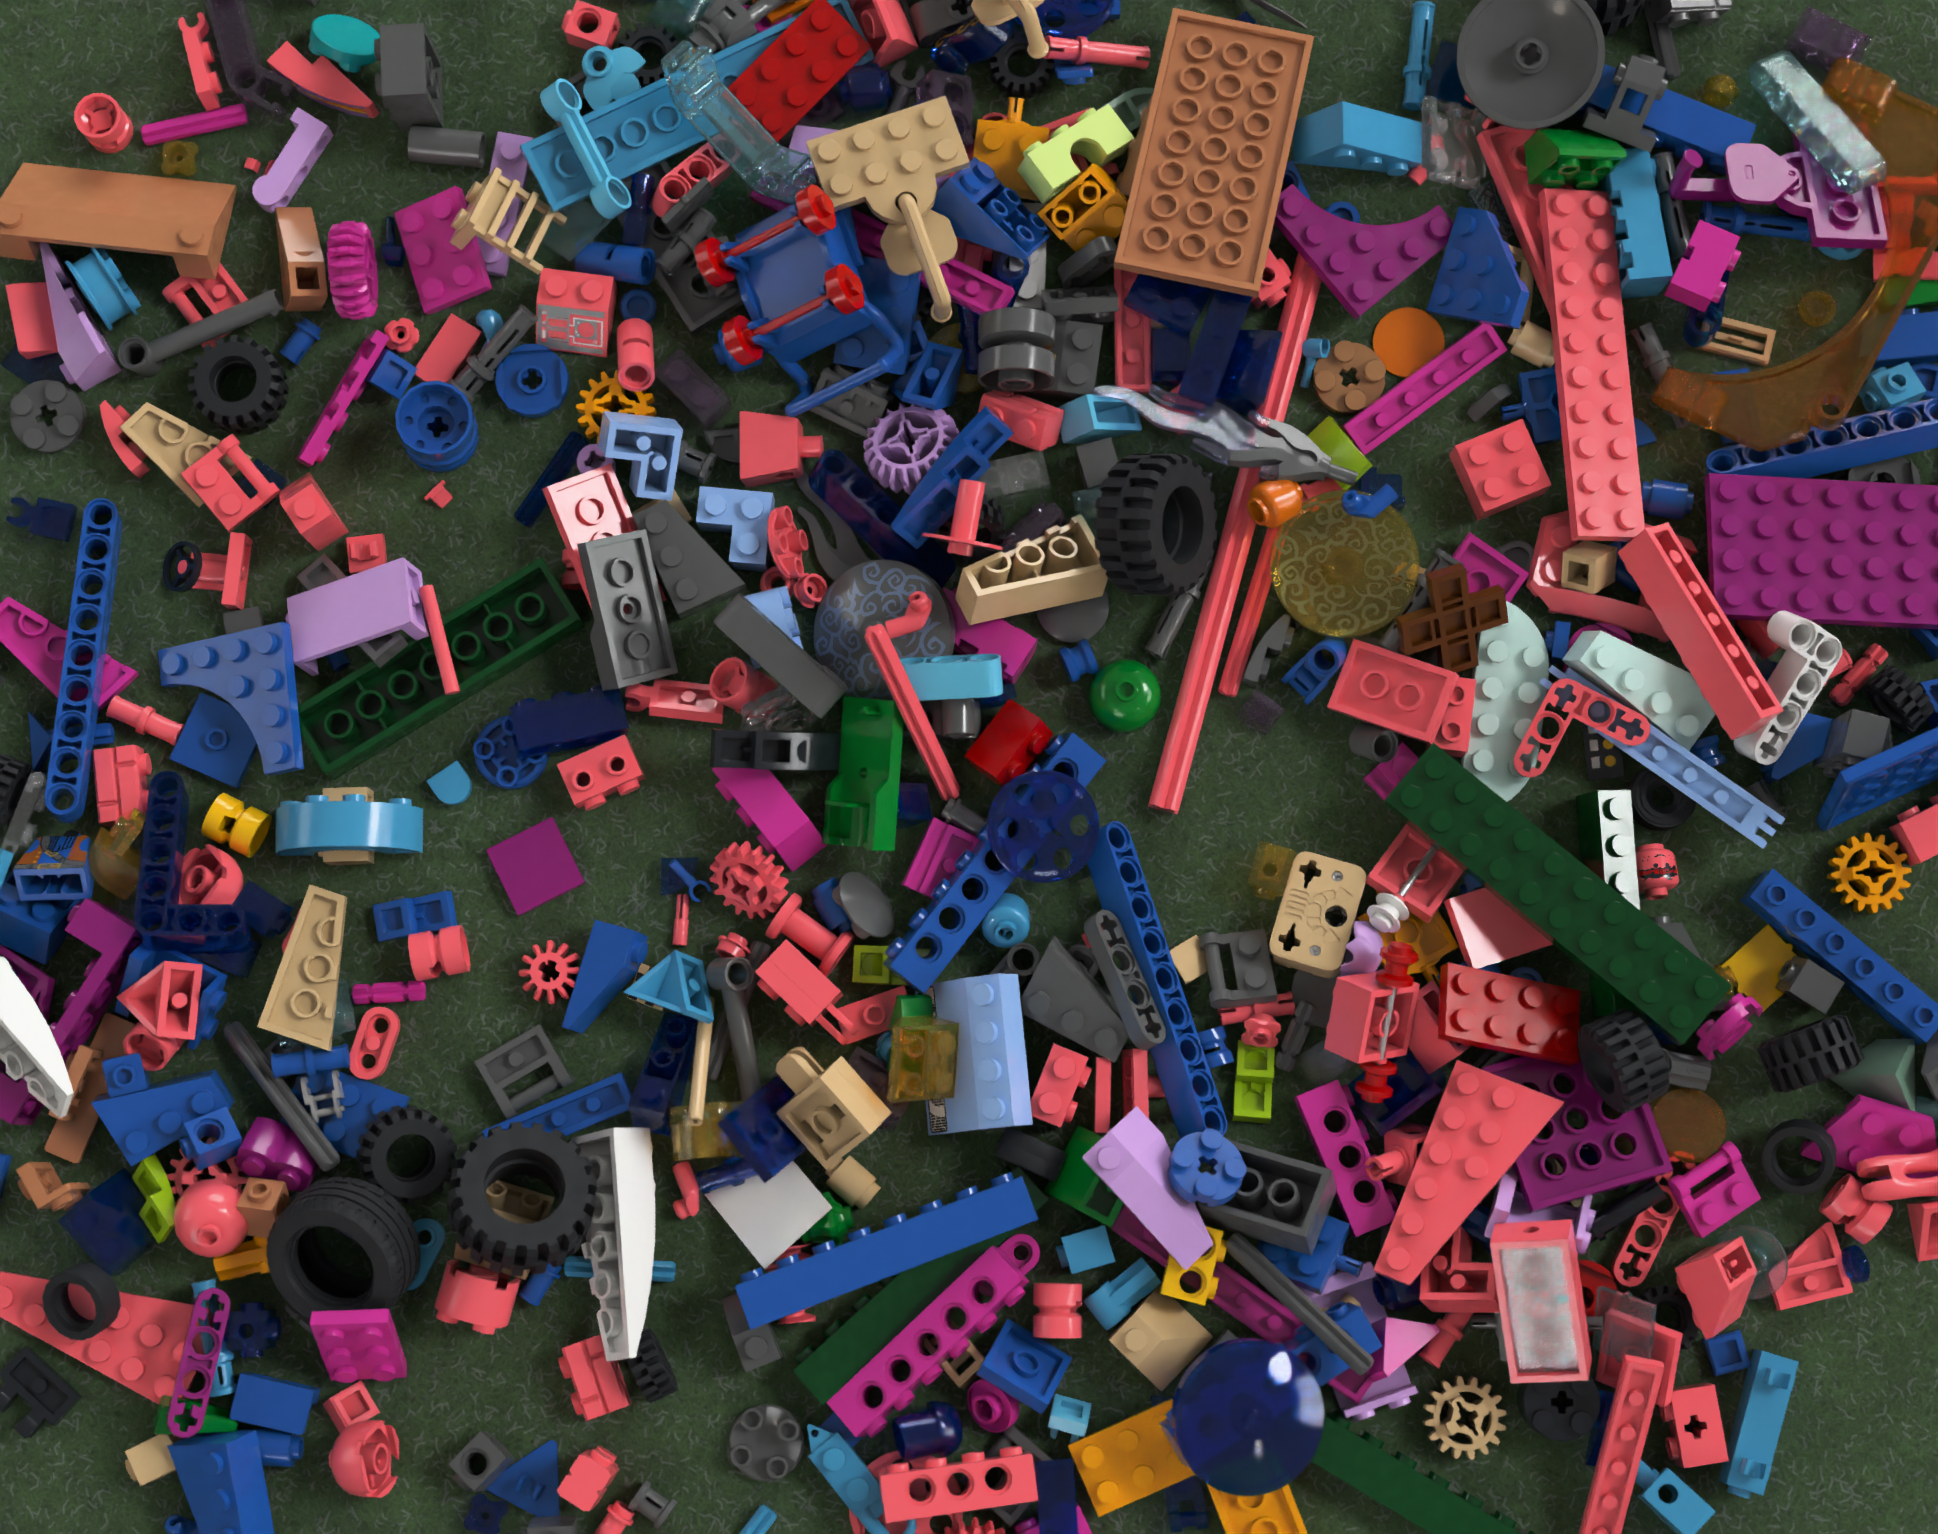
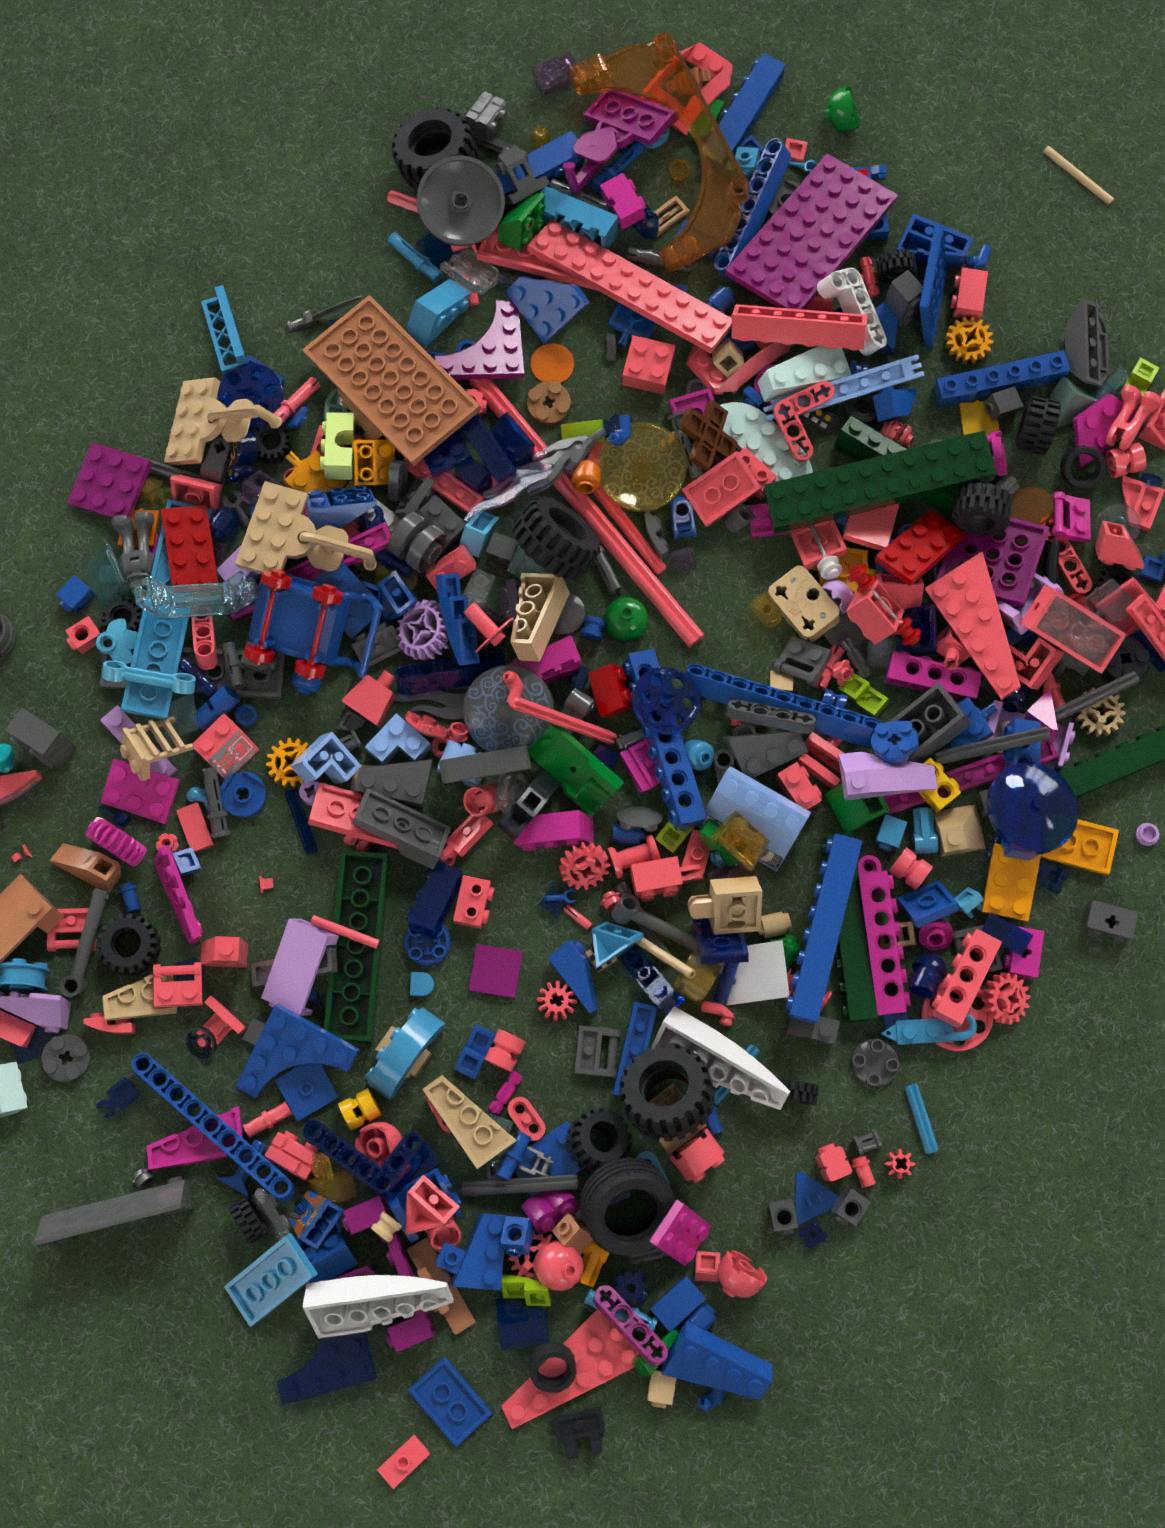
camera: 55 degrees left, 5 degrees down
(45, 1188) = (474, 1347): nougat bracket -> none
(99, 966) = (386, 1227): none -> tan wheel
(263, 910) = (417, 1122): clear blue brick -> none
(293, 162) = (33, 833): lavender leg -> none
(365, 552) = (267, 942): coral tile -> none
(423, 412) = (229, 844): blue wheel -> none
(446, 146) = (87, 750): dark grey pin -> none
(596, 1381) = (782, 1125): coral brick -> none
(635, 354) = (272, 731): coral pin -> none
(687, 205) = (217, 648): dark grey piece -> none
(693, 390) = (311, 716): clear purple brick -> none
(955, 676) = (561, 686): medium azure beam -> none
(1030, 1154) = (823, 825): black tyre -> none
(1313, 349) = (522, 408): dark azure hand -> none
(1424, 387) = (581, 370): dark pink plate -> none
(1476, 1397) = (1096, 695): none -> dark grey axle
(1533, 344) = (599, 306): tan brick -> none
(1692, 837) = (894, 403): none -> blue slope
(1817, 122) = (591, 102): clear light blue beam -> none

